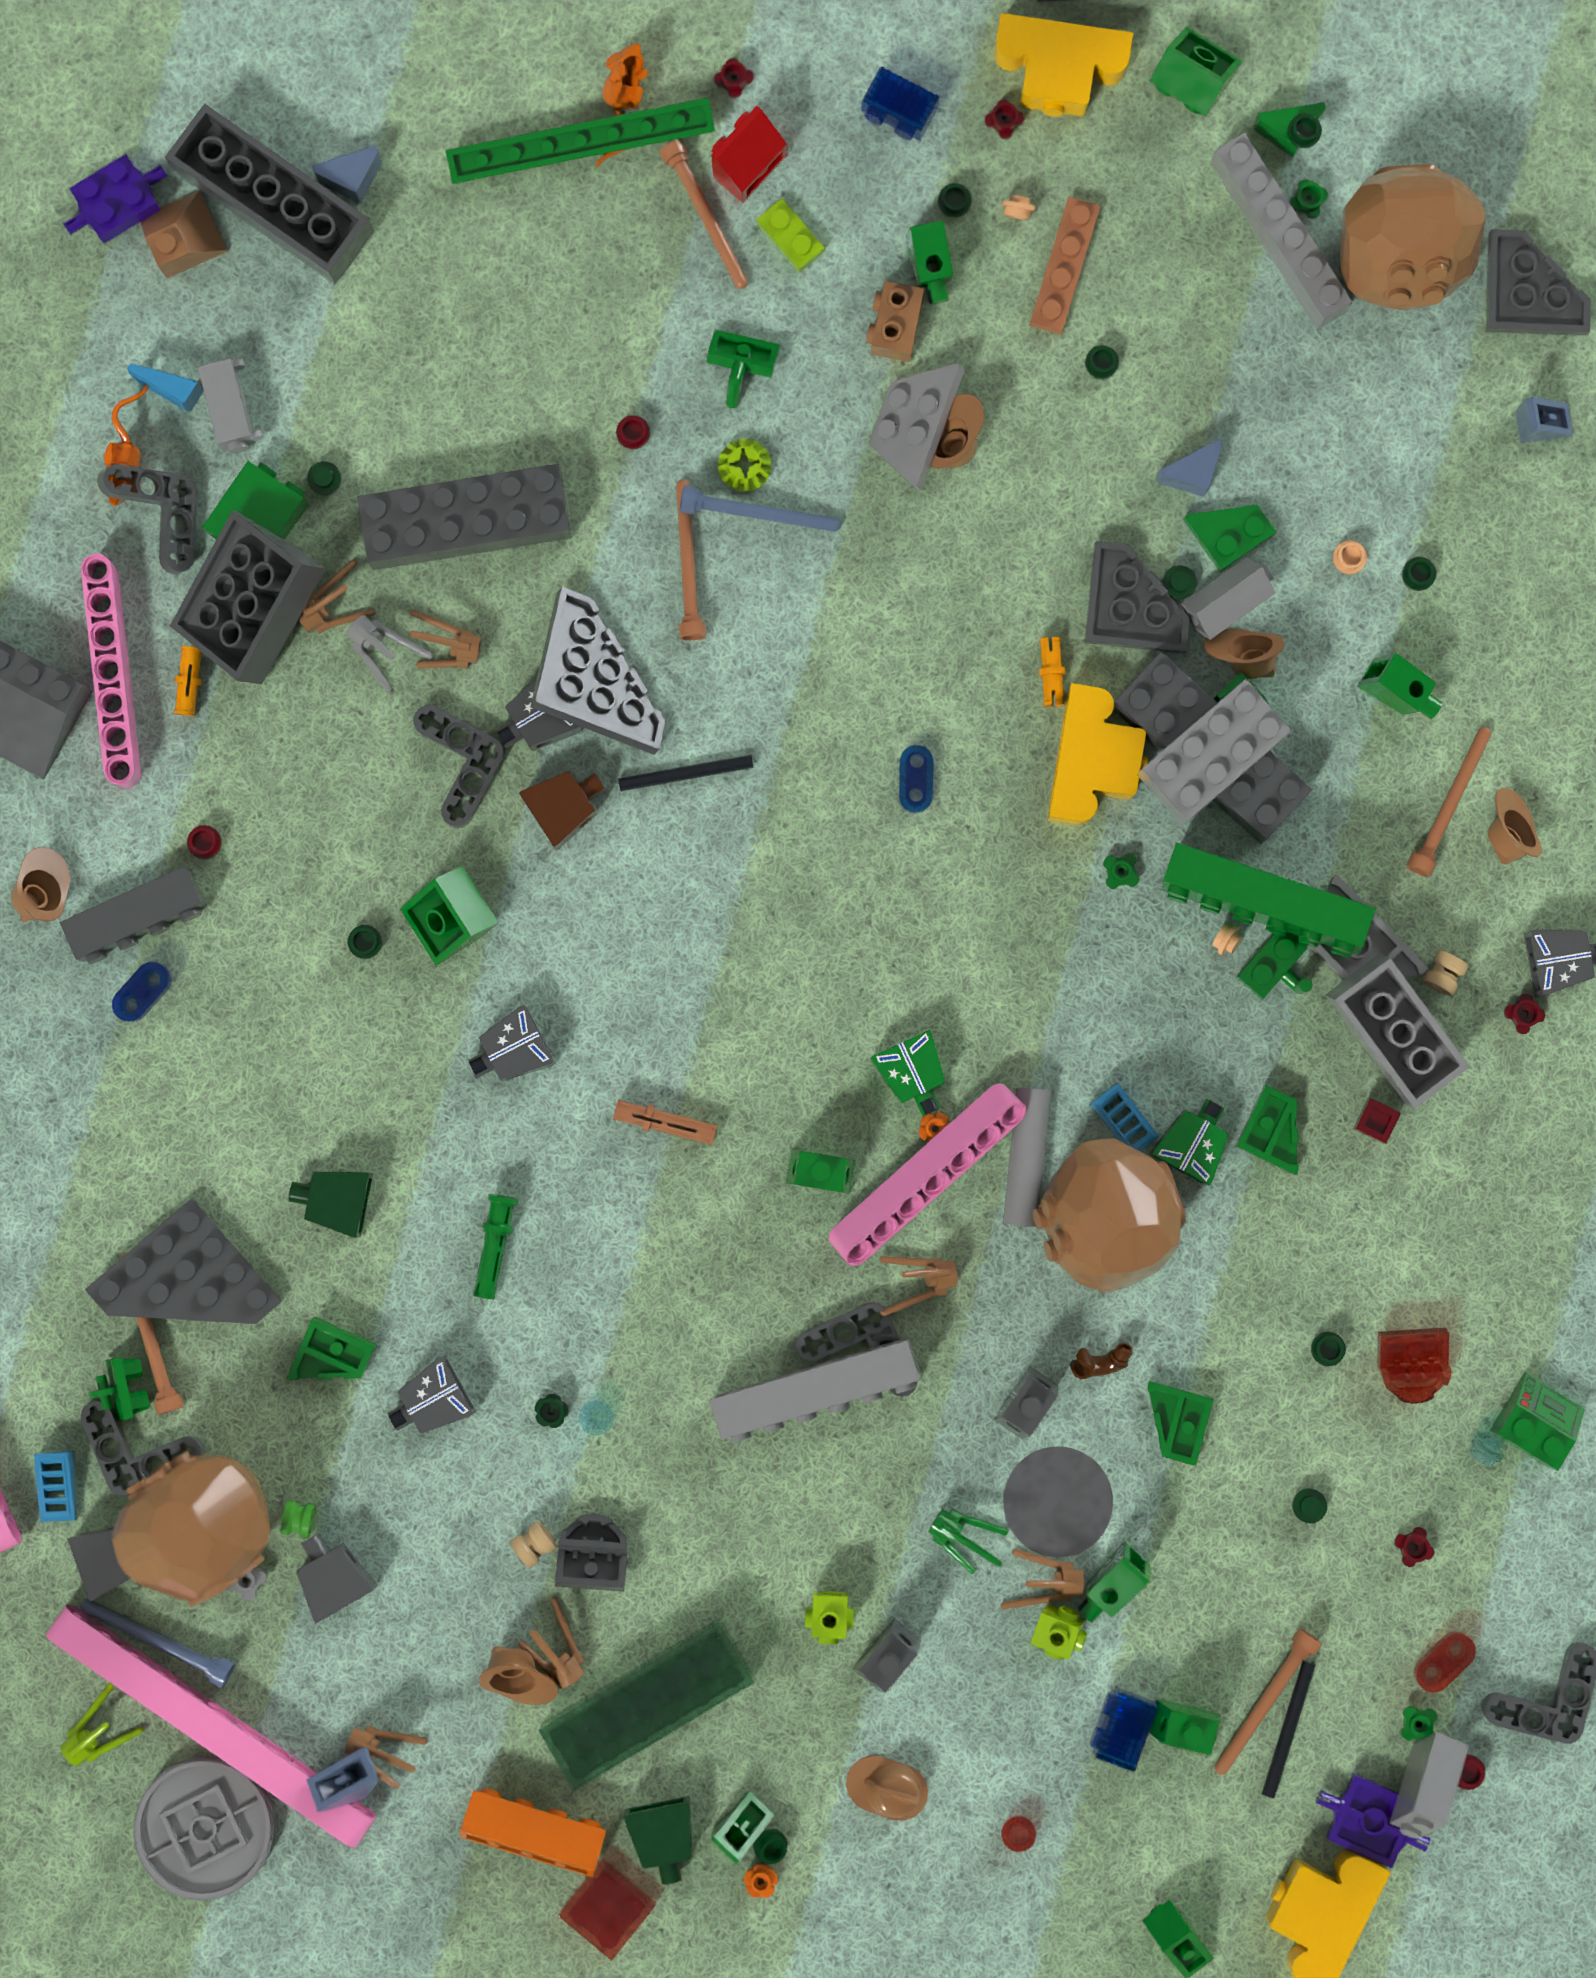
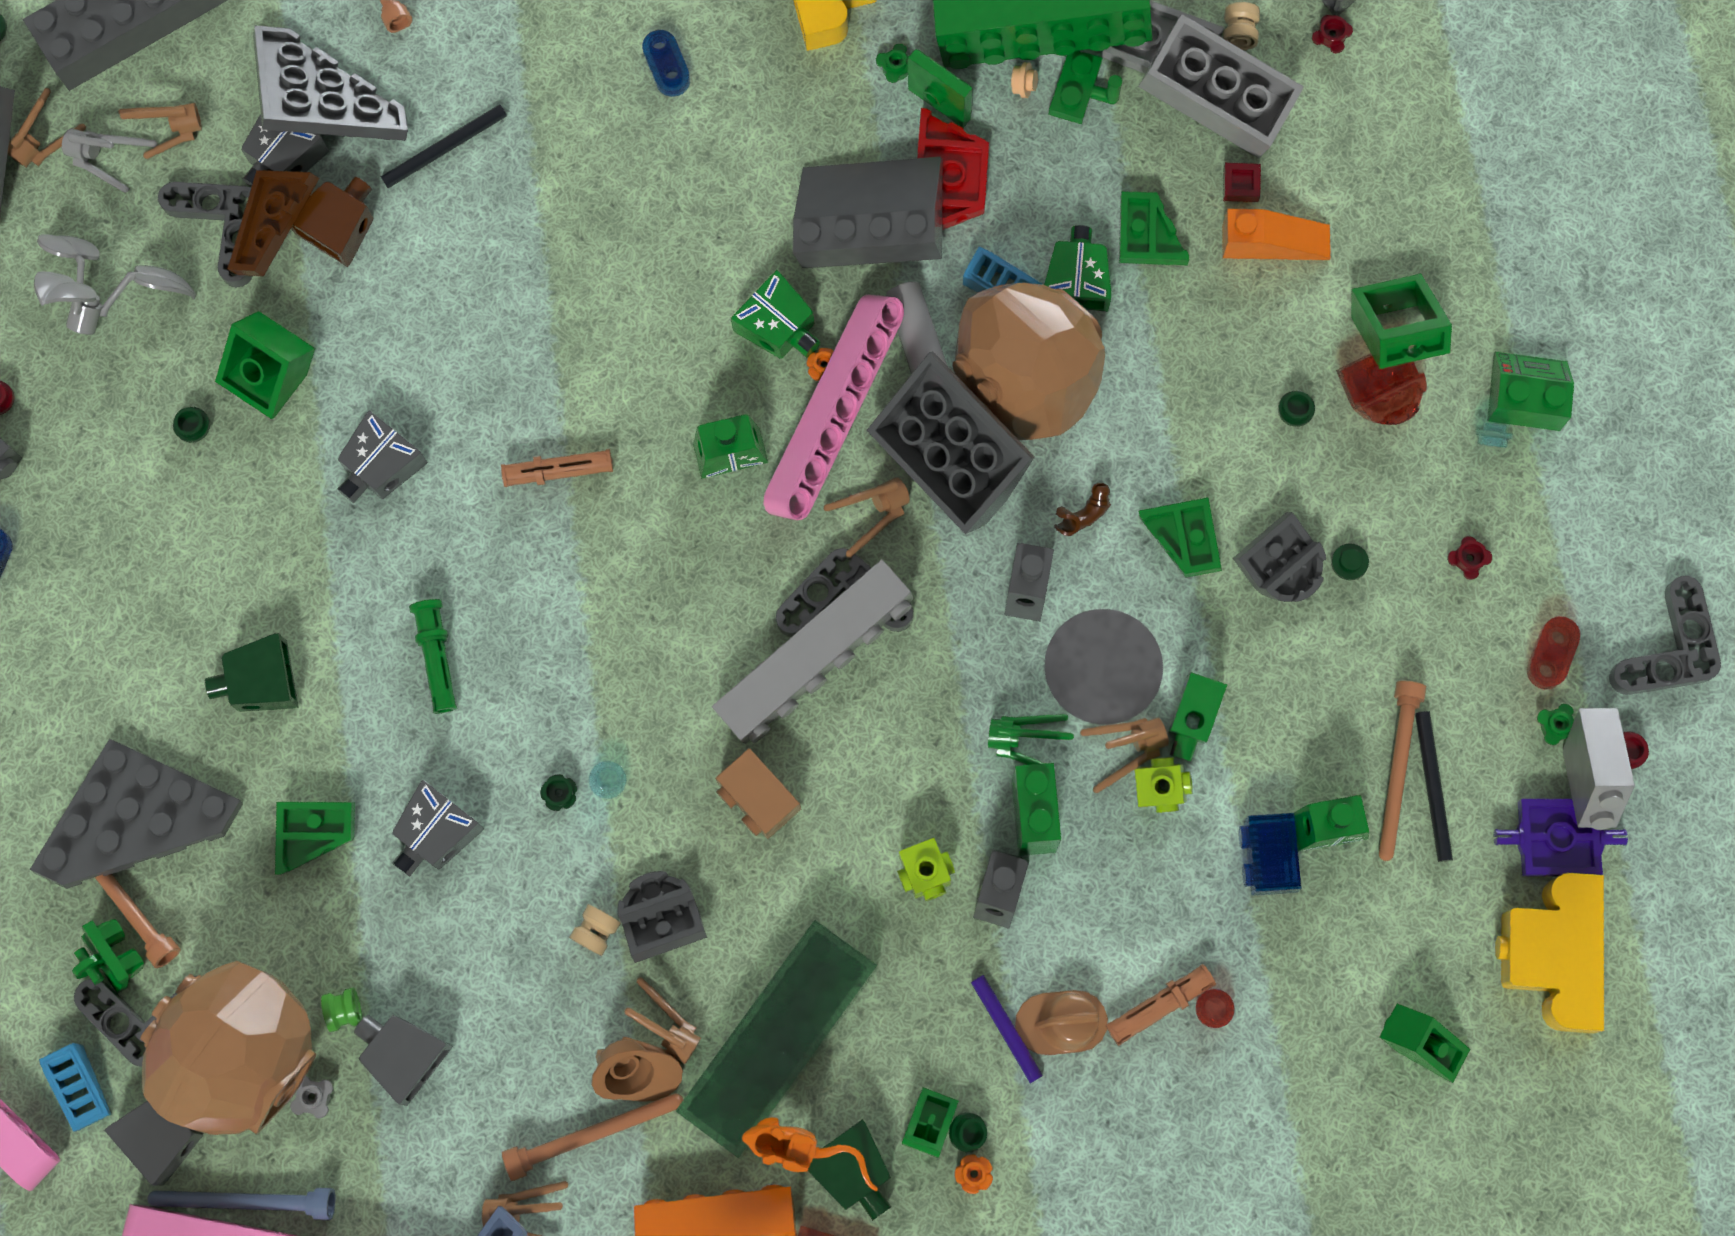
camera: 20 degrees left, 10 degrees down
(310, 797) = (85, 303): none -> light grey plant
(396, 1708) = (522, 1160): none -> nougat piece
(503, 786) = (268, 217): none -> reddish brown wing
(621, 1804) = (794, 1147): none -> orange animal
(716, 1490) = (757, 794): none -> medium nougat brick
(839, 1774) = (1006, 1029): none -> dark purple bar
(942, 1611) = (1036, 809): none -> green brick
(975, 1811) = (1174, 996): none -> nougat pin
(1009, 1264) = (951, 444): none -> dark grey slope
(1035, 1006) = (869, 213): none -> dark grey slope
(1120, 1000) = (963, 167): none -> red wing
(1147, 921) = (939, 88): none -> green plate
(1252, 1481) = (1283, 561): none -> dark grey slope
(1382, 1185) = (1273, 236): none -> orange slope
(1445, 1344) = (1391, 345): none -> green window

